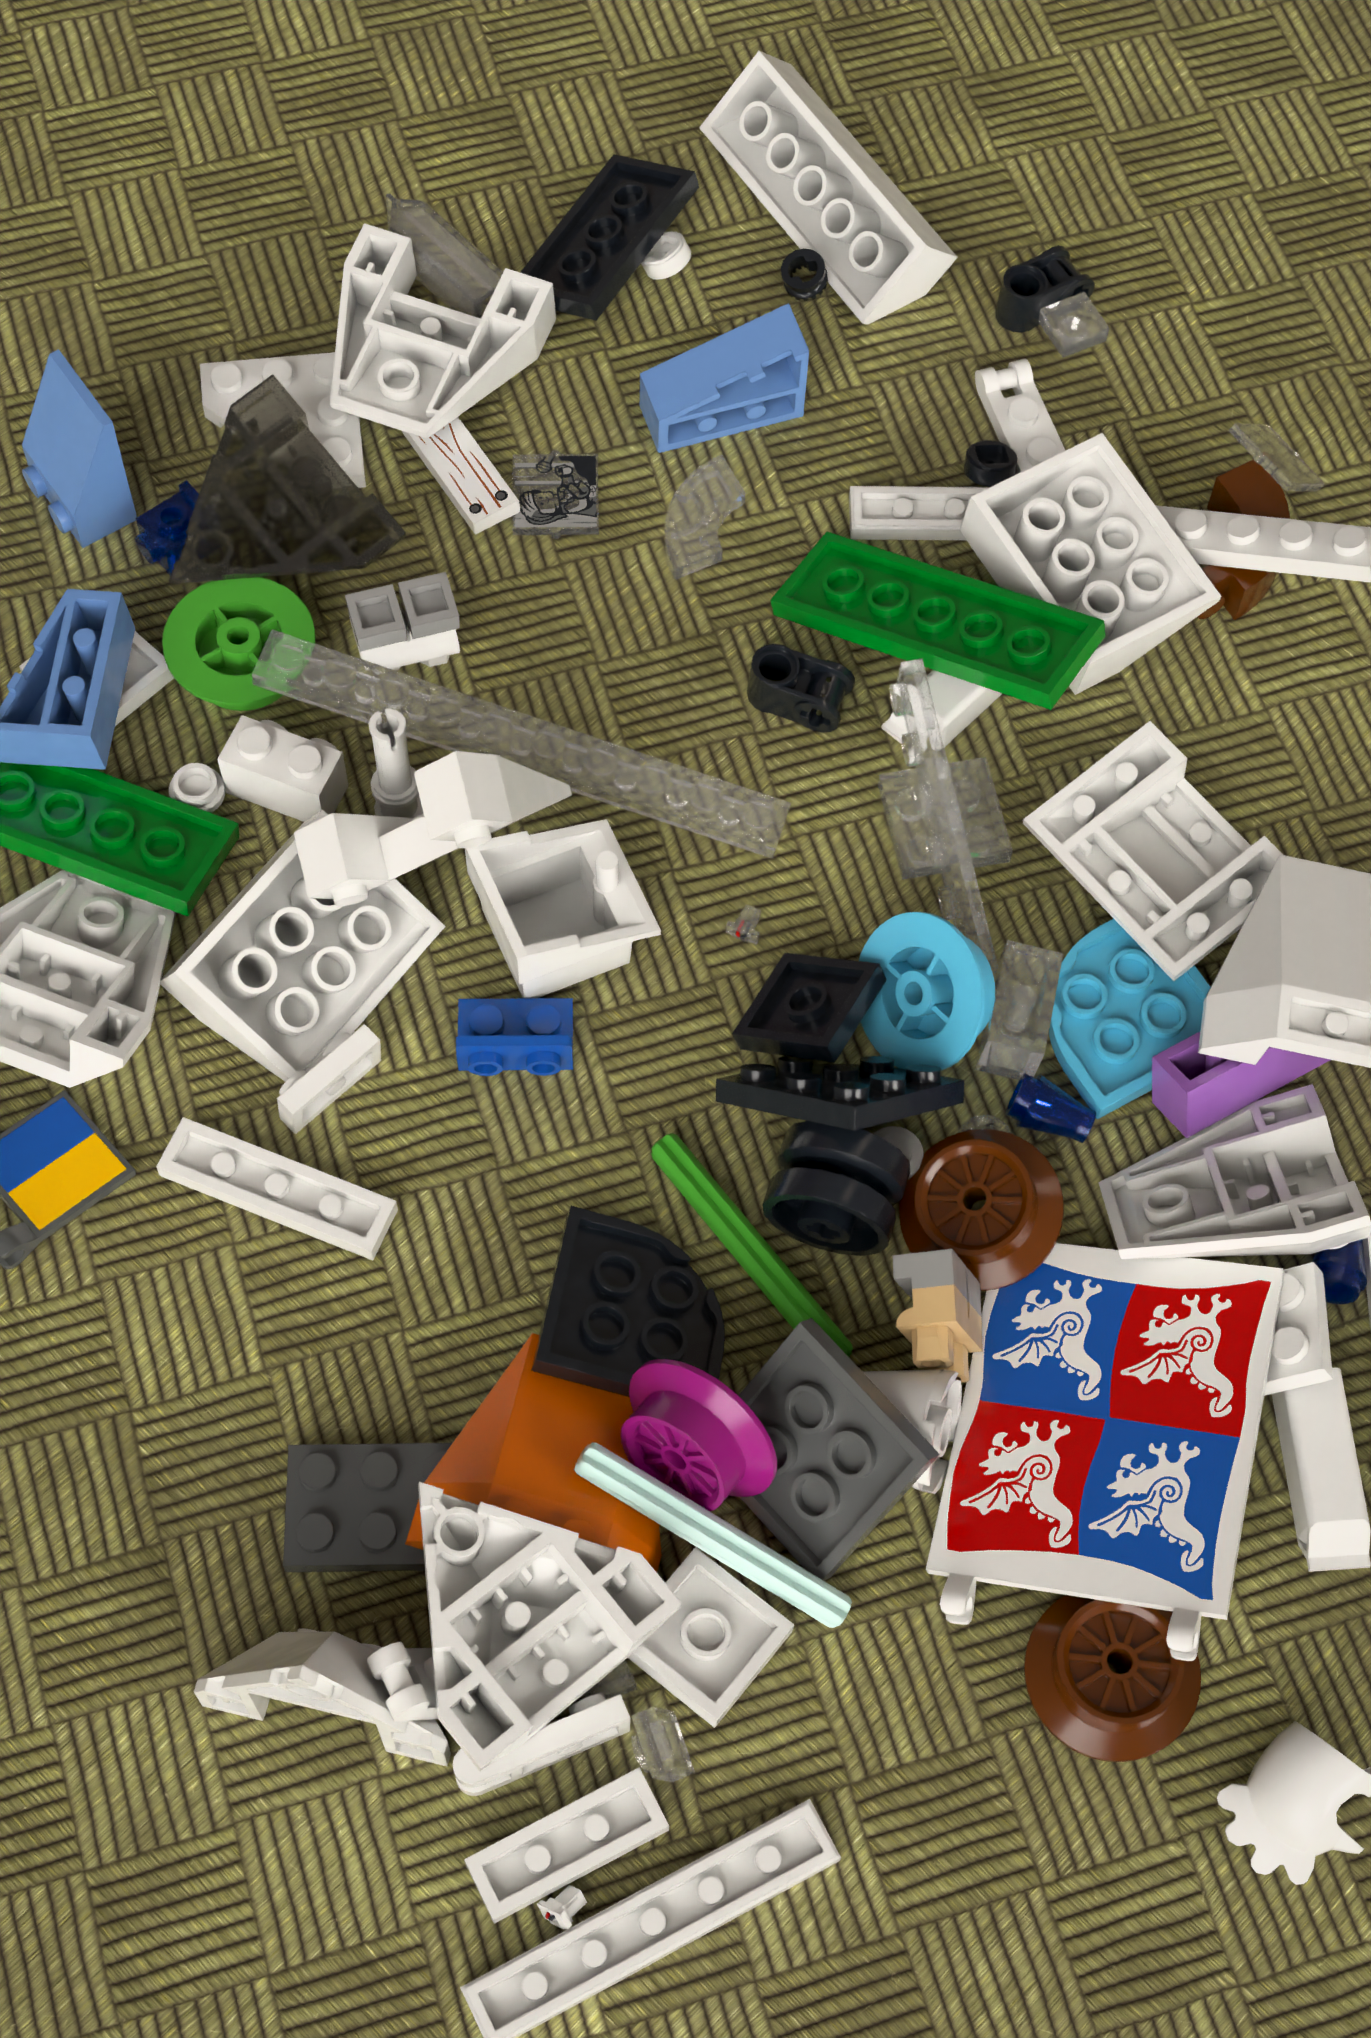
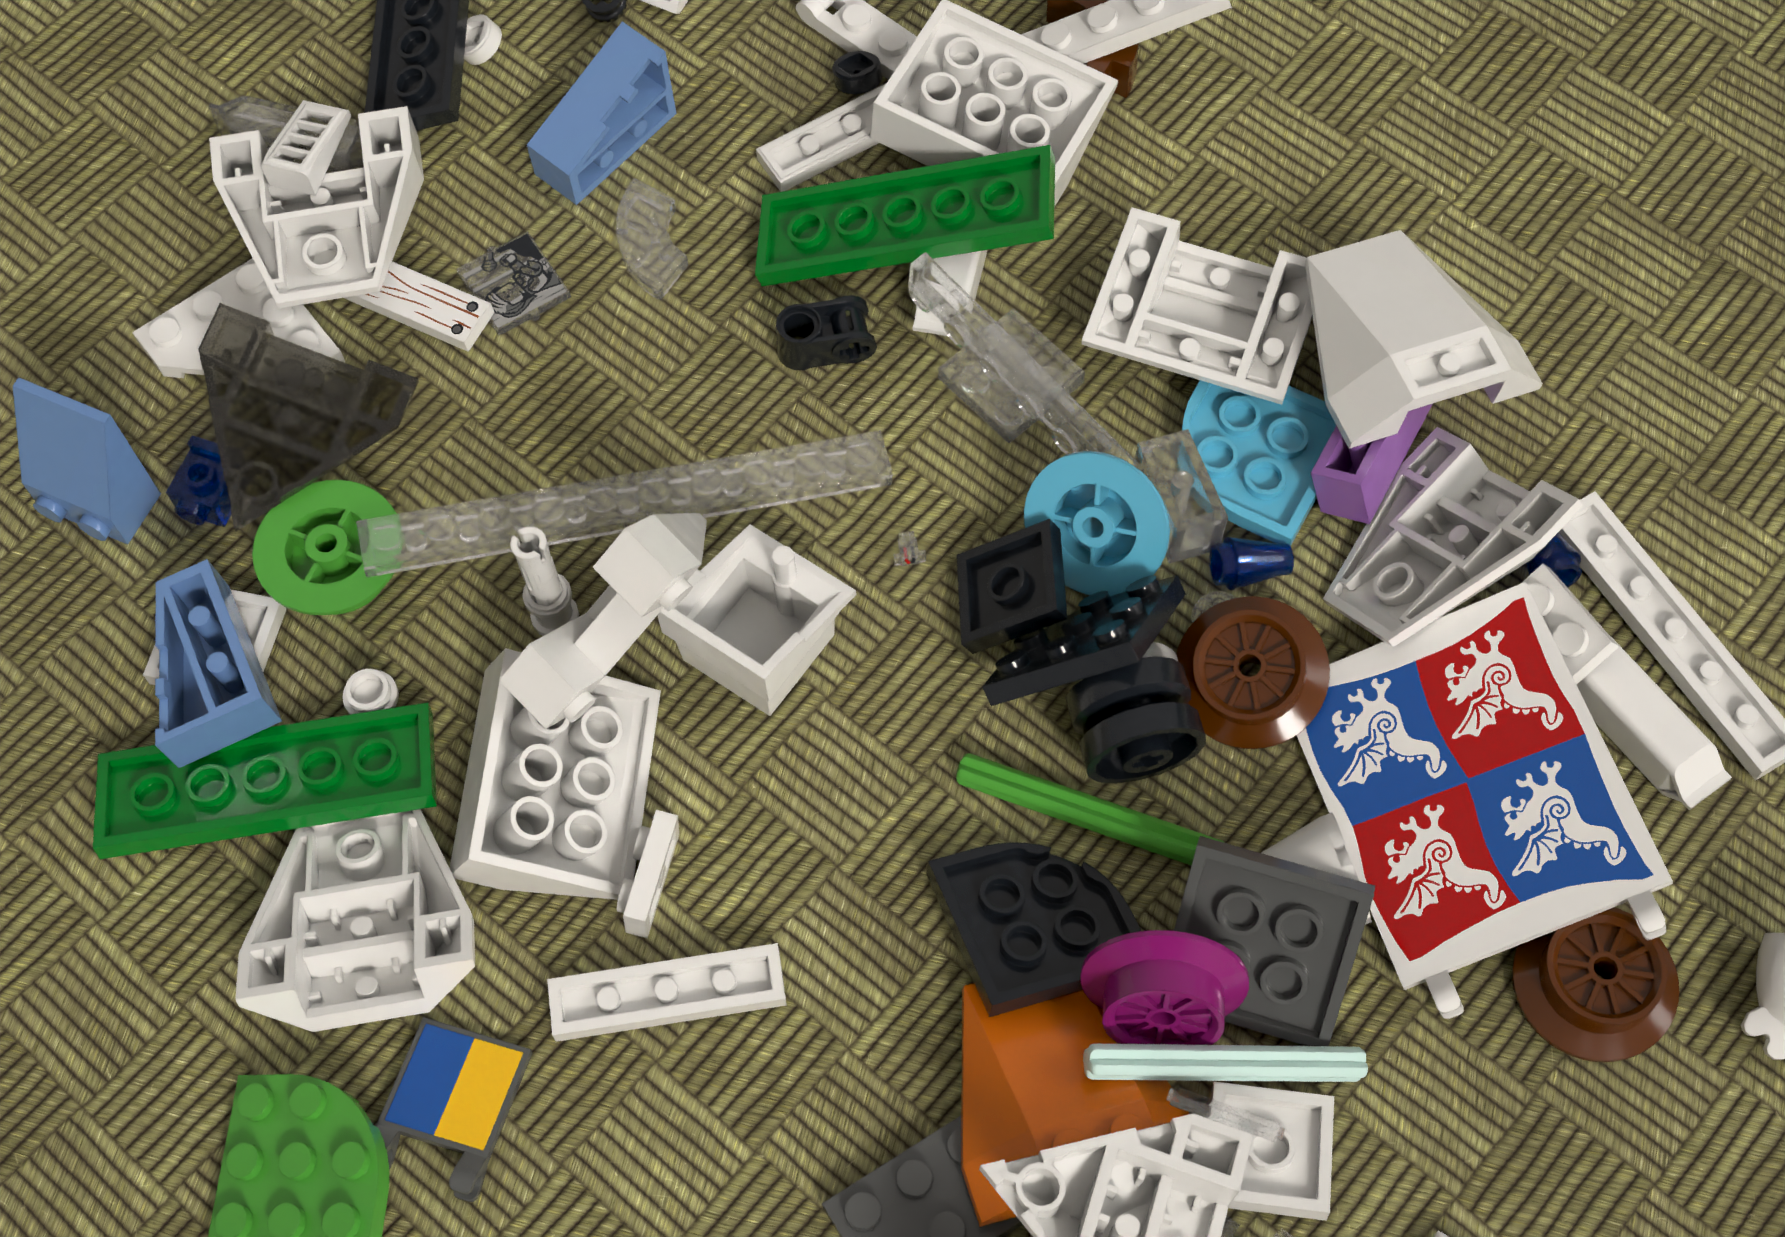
camera: 25 degrees left, 0 degrees up
(282, 769) = (438, 636): white brick -> none
(416, 633) = (468, 456): light grey hips -> none
(431, 300) = (309, 174): none -> white slope
(515, 1035) = (781, 748): blue bracket -> none
(674, 1574) = (1225, 1114): none -> clear piece
(945, 1310) = (1292, 778): tan hips -> none

